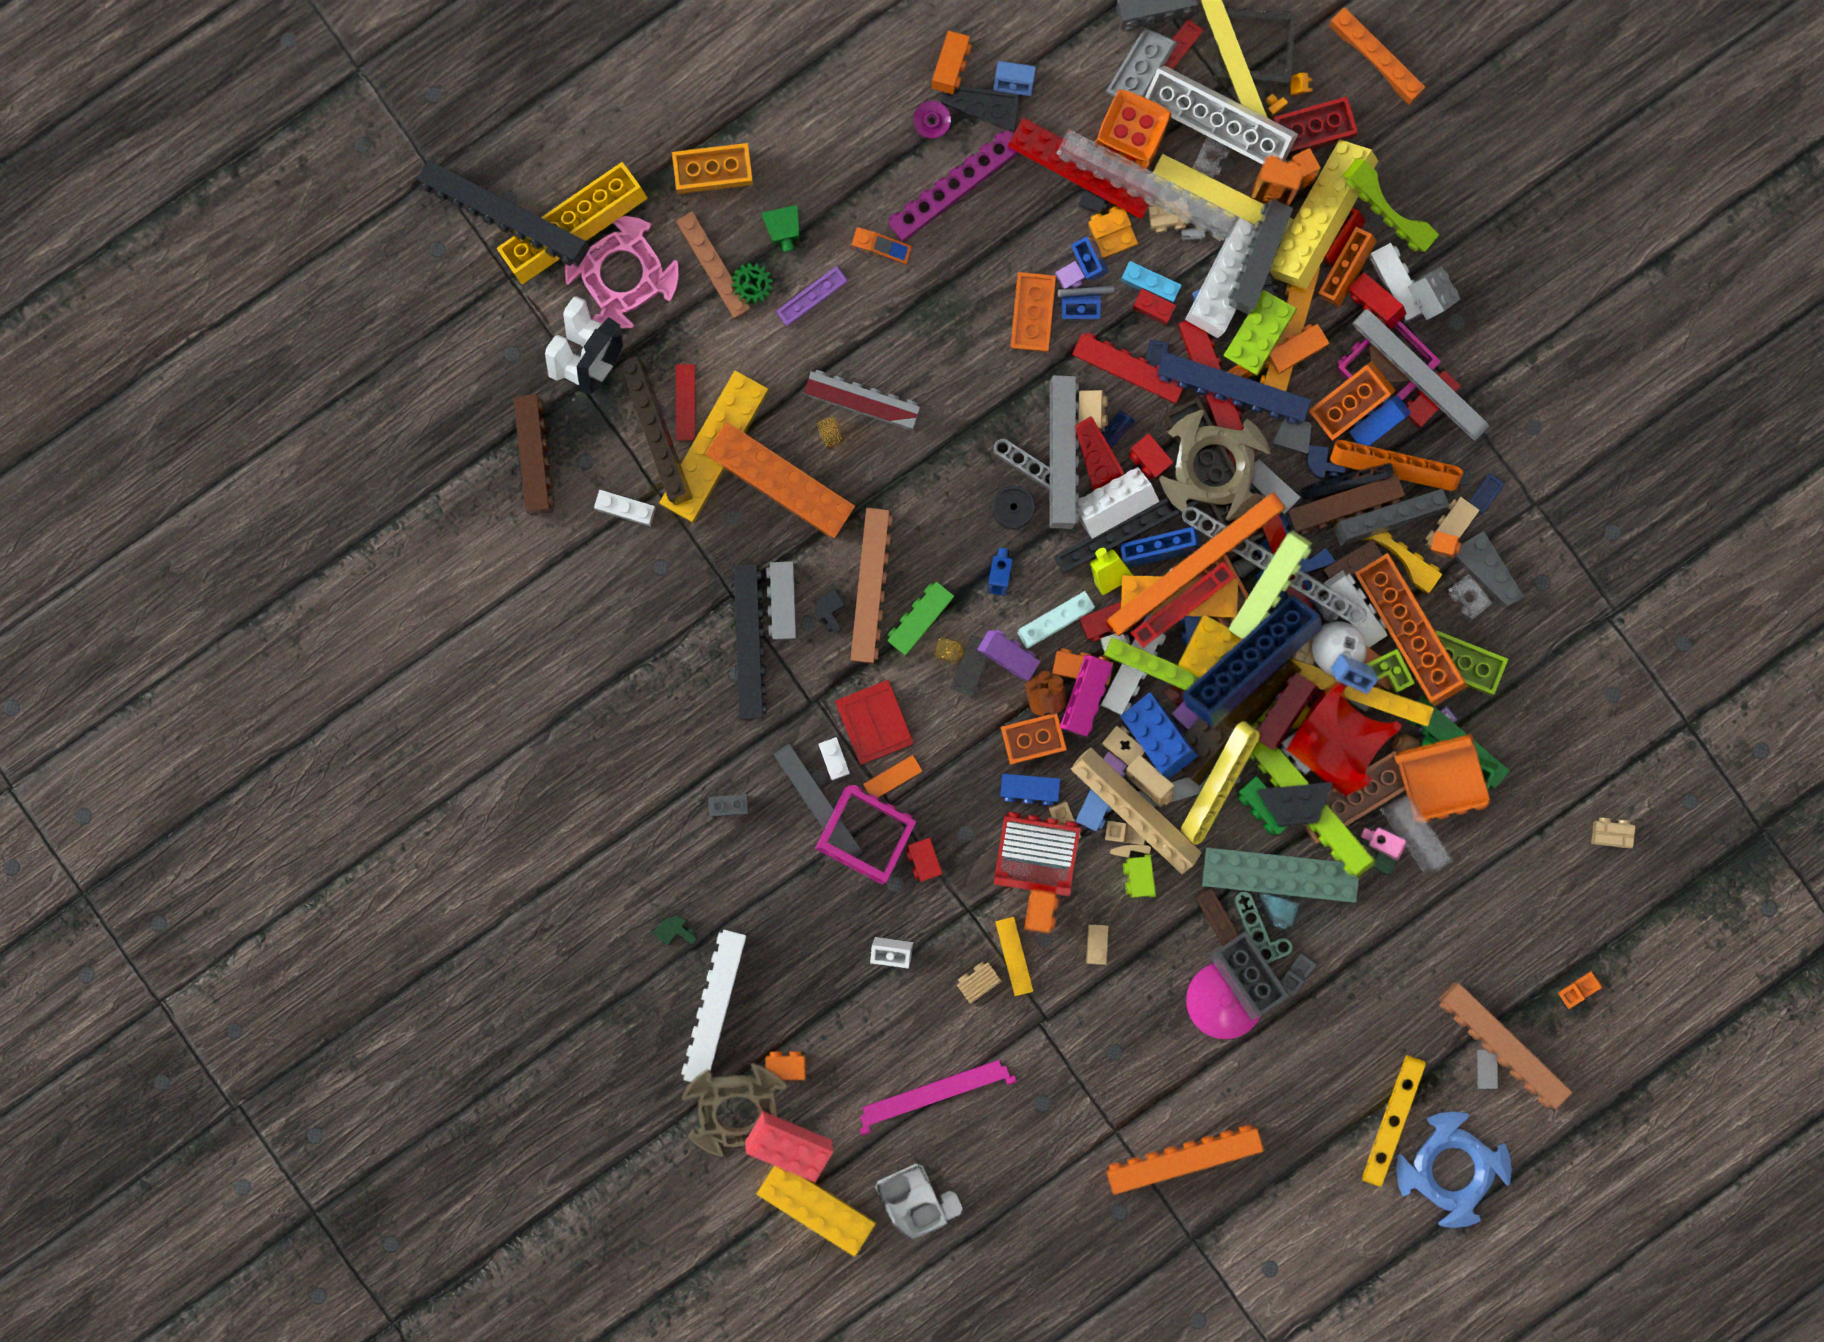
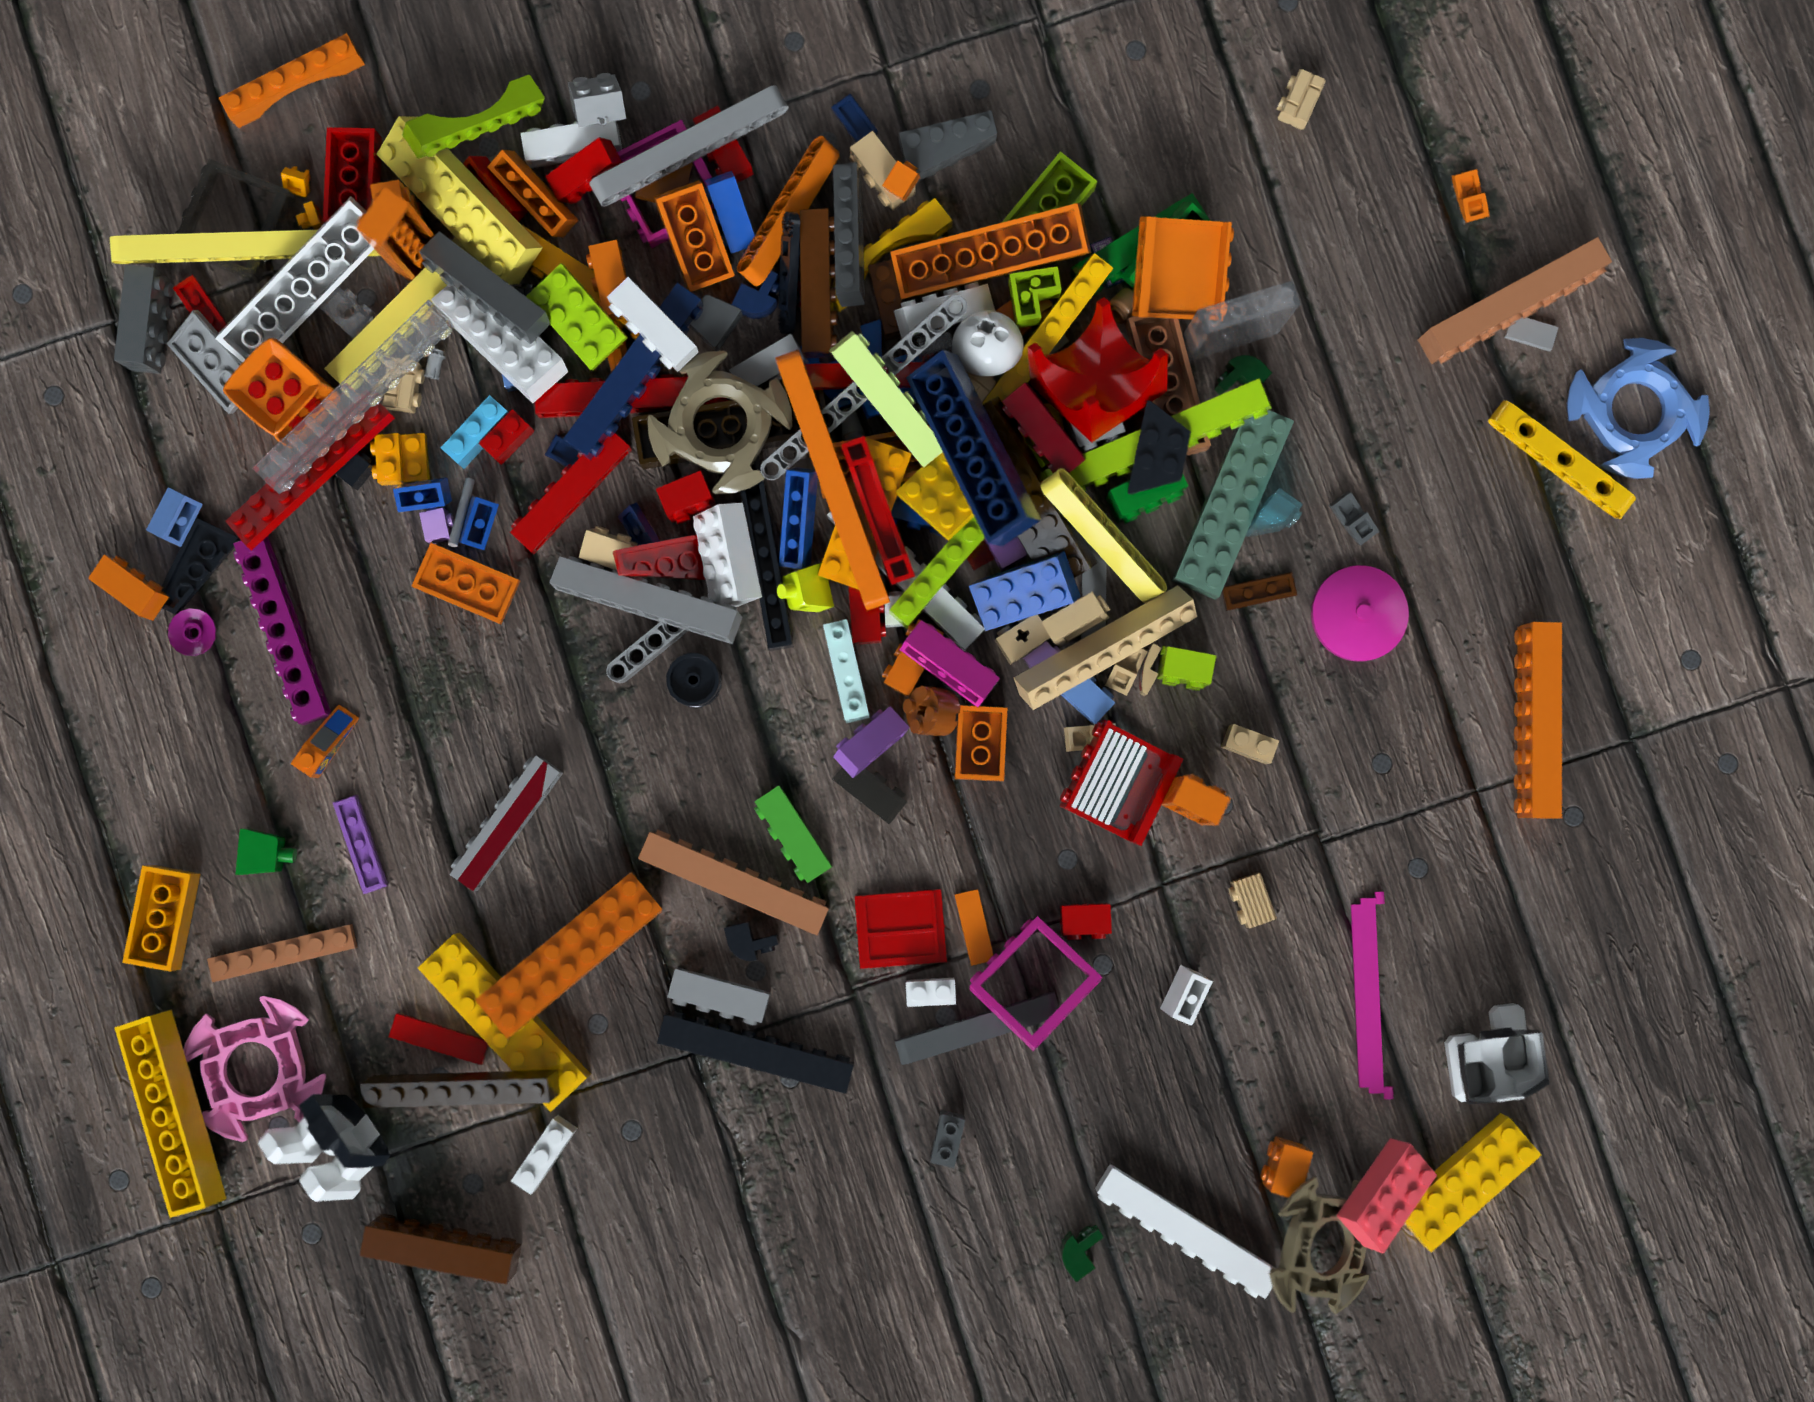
camera: 80 degrees left, 0 degrees up
(503, 214) = (127, 1197): black brick -> none
(754, 290) = (311, 907): green gear -> none
(829, 431) = (531, 874): clear yellow brick -> none
(948, 650) = (842, 811): clear yellow brick -> none
(999, 577) = (774, 723): blue torso -> none
(1014, 956) = (1233, 847): yellow plate -> none
(1030, 789) = (1039, 766): blue brick -> none
(1248, 976) = (1344, 574): dark grey brick -> none
(1258, 926) = (1284, 546): sand green beam -> none
(1271, 392) = (652, 324): none -> white brick
(1354, 673) = (1025, 331): medium blue brick -> none
(1392, 847) = (1242, 354): bright pink torso -> none
(1480, 600) = (979, 165): clear brick -> none

